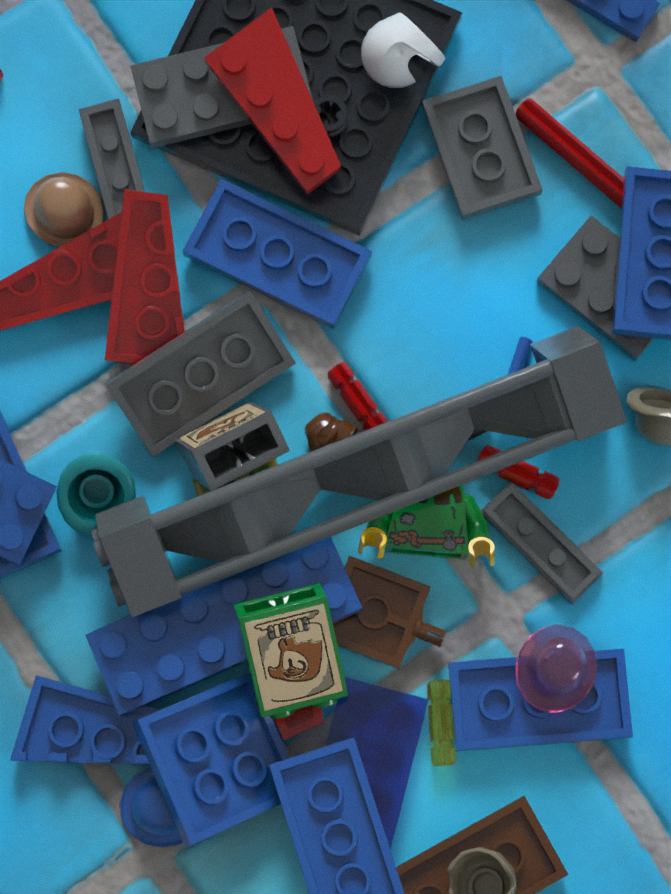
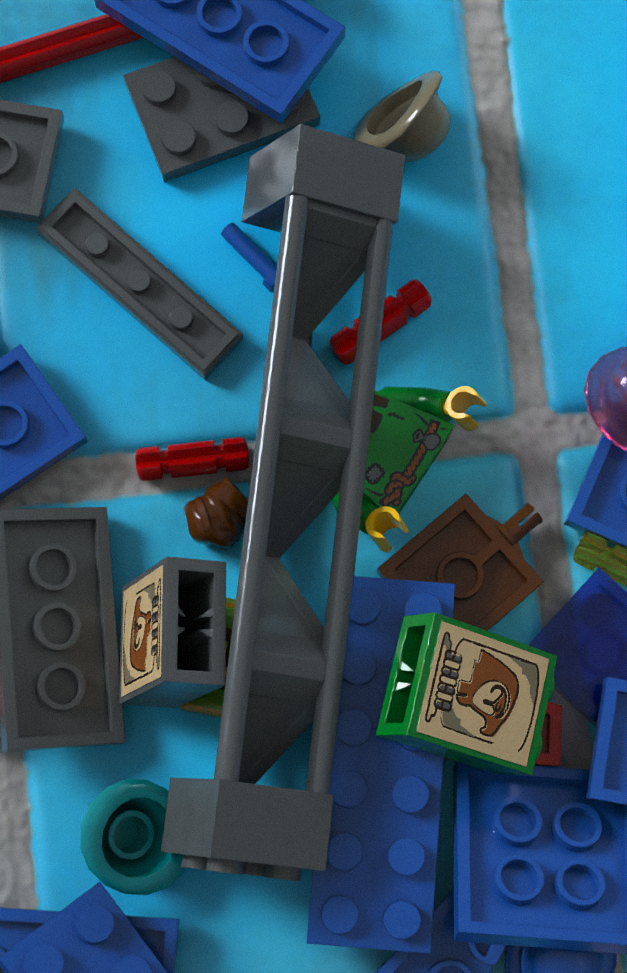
camera: 70 degrees left, 0 degrees up
(456, 304) = (139, 283): none -> dark grey tile
(541, 543) = (477, 341): dark grey tile -> none

